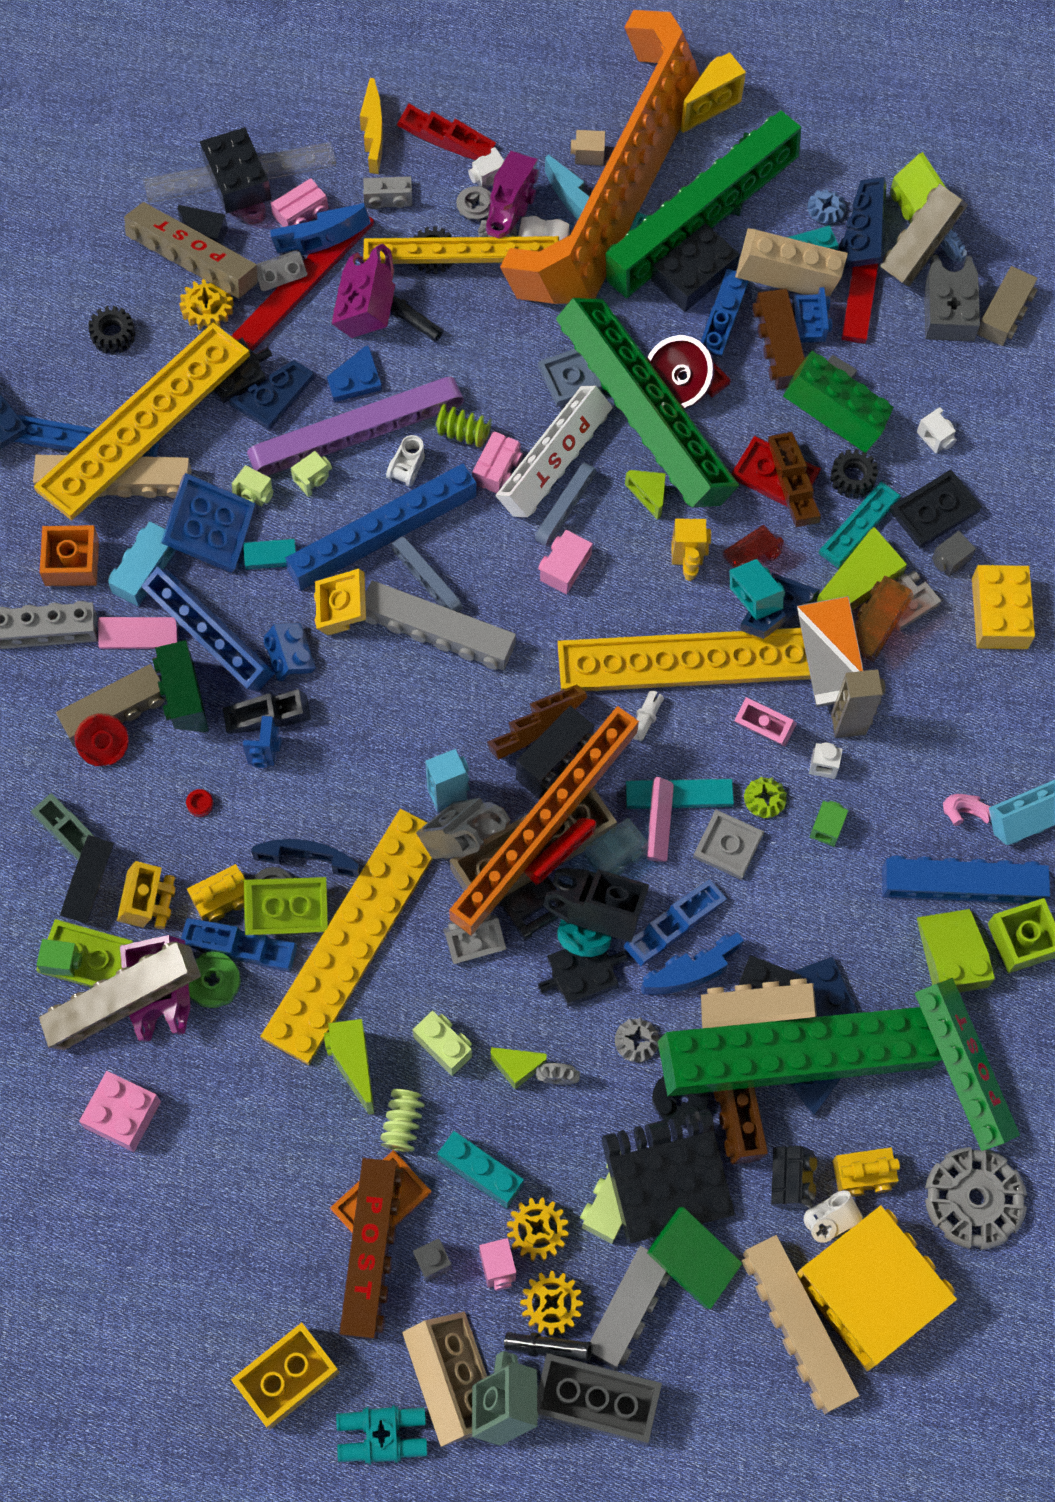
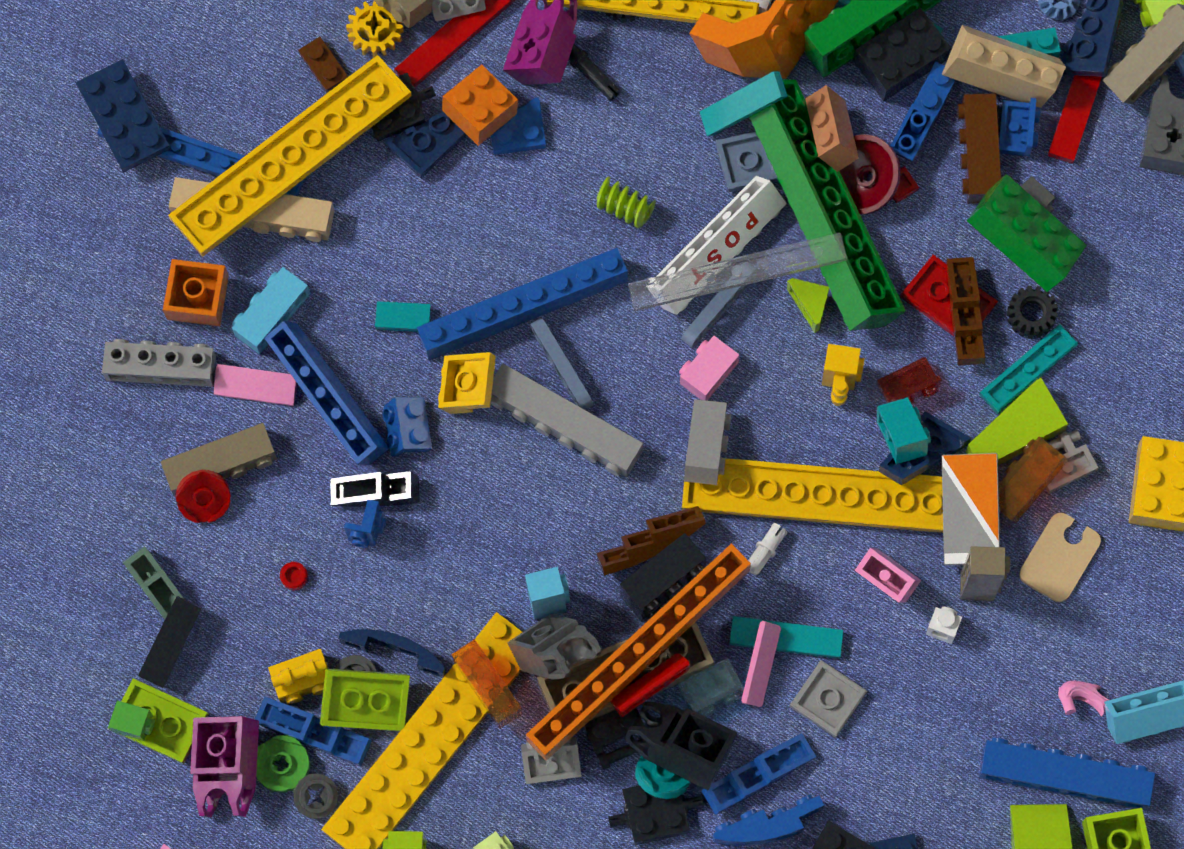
camera: 15 degrees right, 5 degrees up
(116, 341) = (269, 30): black tyre -> none
(119, 996) = (186, 770): brick -> none
(140, 893) = (221, 665): yellow brick -> none
(160, 341) = (322, 64): none -> reddish brown plate
(180, 687) = (290, 453): dark green slope -> none
(208, 523) = (342, 276): blue plate -> none
(253, 486) = (394, 241): yellowish green brick -> none
(262, 1004) = (328, 796): none -> dark grey gear
(311, 472) = (458, 233): yellowish green brick -> none
(315, 355) = (479, 105): none -> orange brick
(355, 426) = (511, 187): medium lavender beam -> none
(402, 873) = (487, 684): none -> clear orange brick
(405, 464) = (557, 239): white piece -> none
(497, 462) = (654, 248): bright pink brick -> none
(559, 322) = (743, 103): none -> teal tile
(575, 625) = (707, 442): none -> light grey brick
(579, 466) = (737, 272): none -> clear tile
(644, 335) = (831, 128): none -> nougat brick
(759, 806) = (866, 663): lime gear -> none
(829, 823) = (935, 691): bright green brick -> none
(918, 694) = (1054, 563): none -> tan piece
(935, 508) = (1112, 363): black plate -> none
(937, 431) = (1130, 276): white brick -> none
(953, 554) = (1121, 417): dark grey brick -> none

